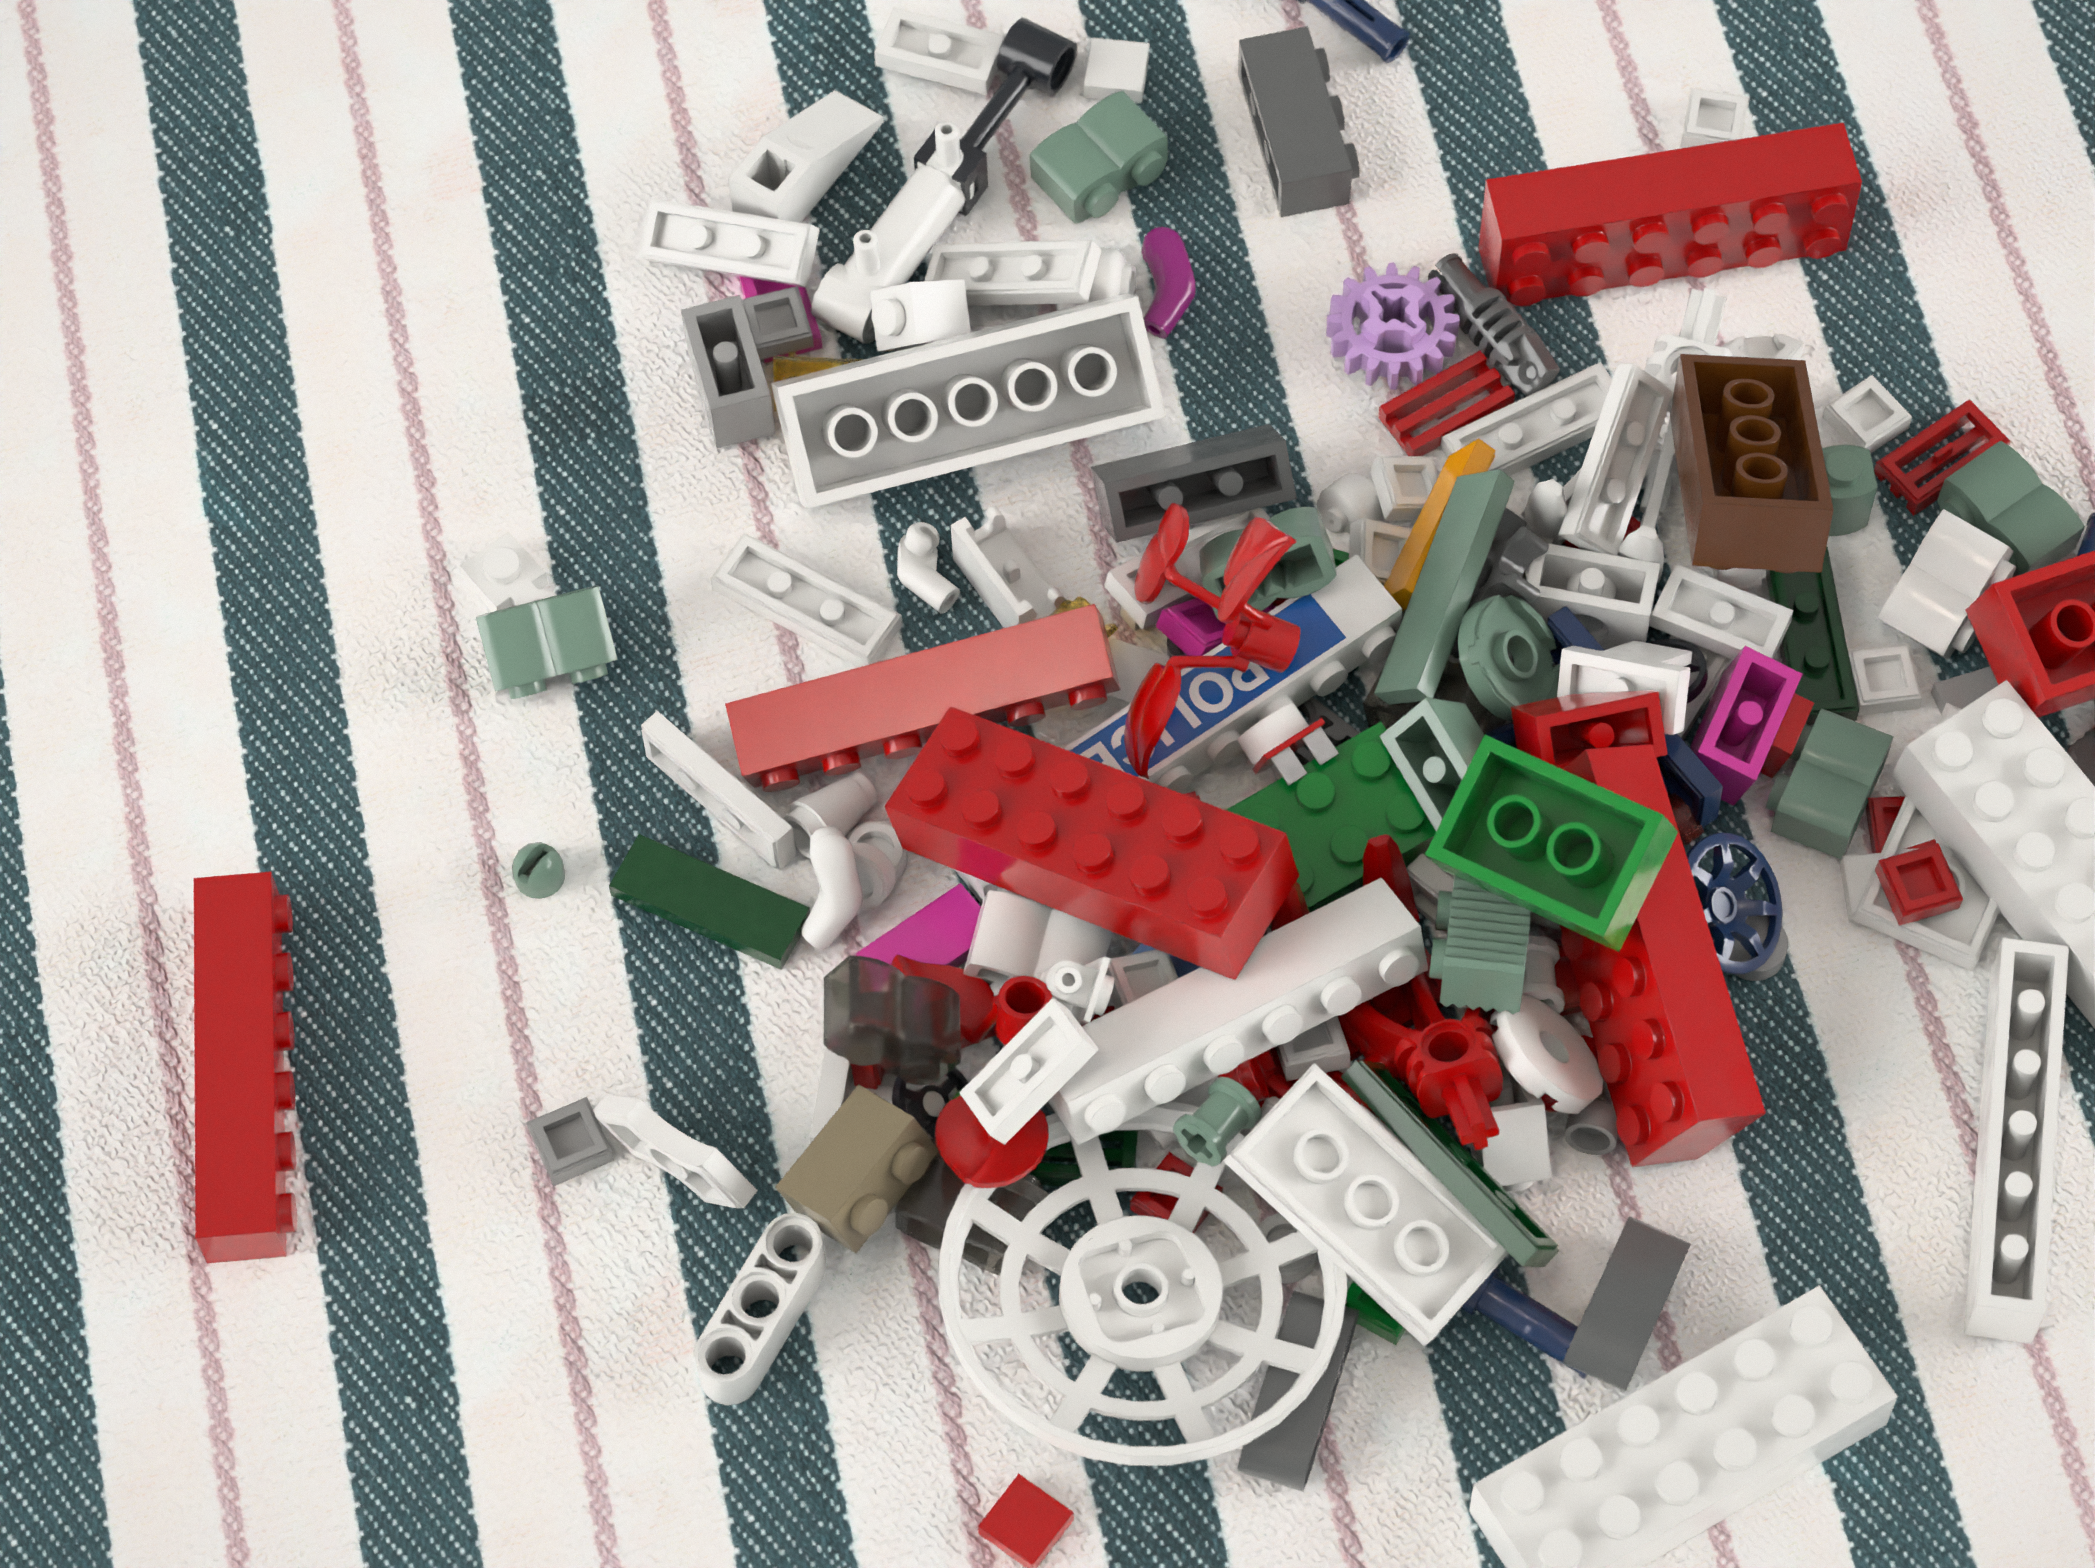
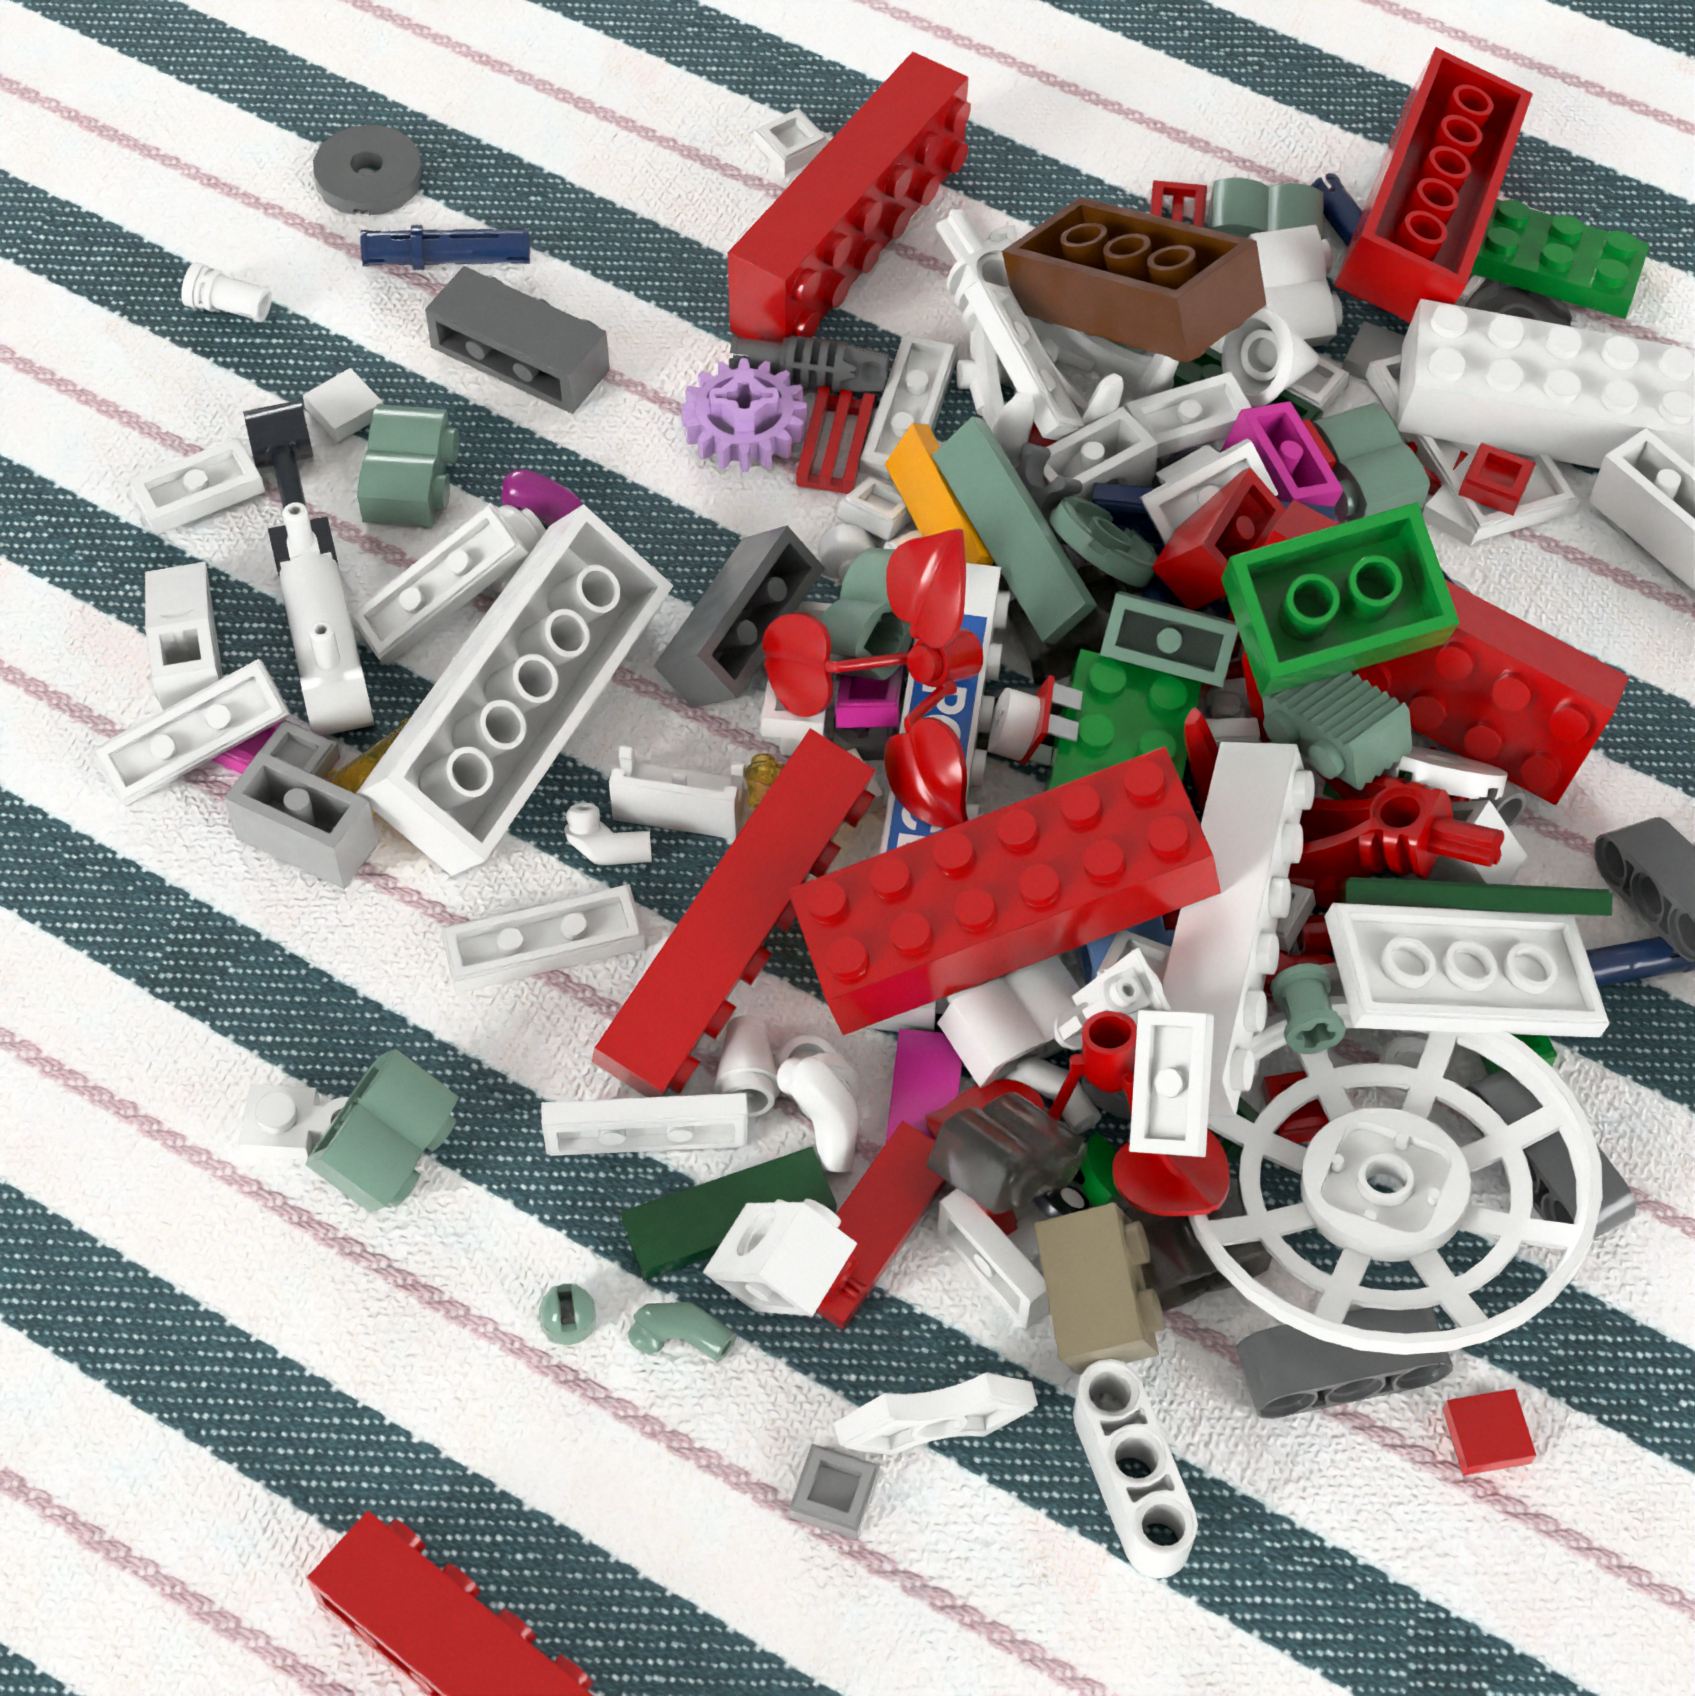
camera: 50 degrees left, 5 degrees down
(596, 939) = (680, 1320): none -> sand green arm
(683, 952) = (781, 1256): none -> white brick
(764, 998) = (881, 1218): none -> red hinge
(919, 313) = (407, 662): white brick -> none
(929, 1361) = (1301, 1374): none -> dark grey beam
(1847, 627) = (1266, 356): none -> white hat

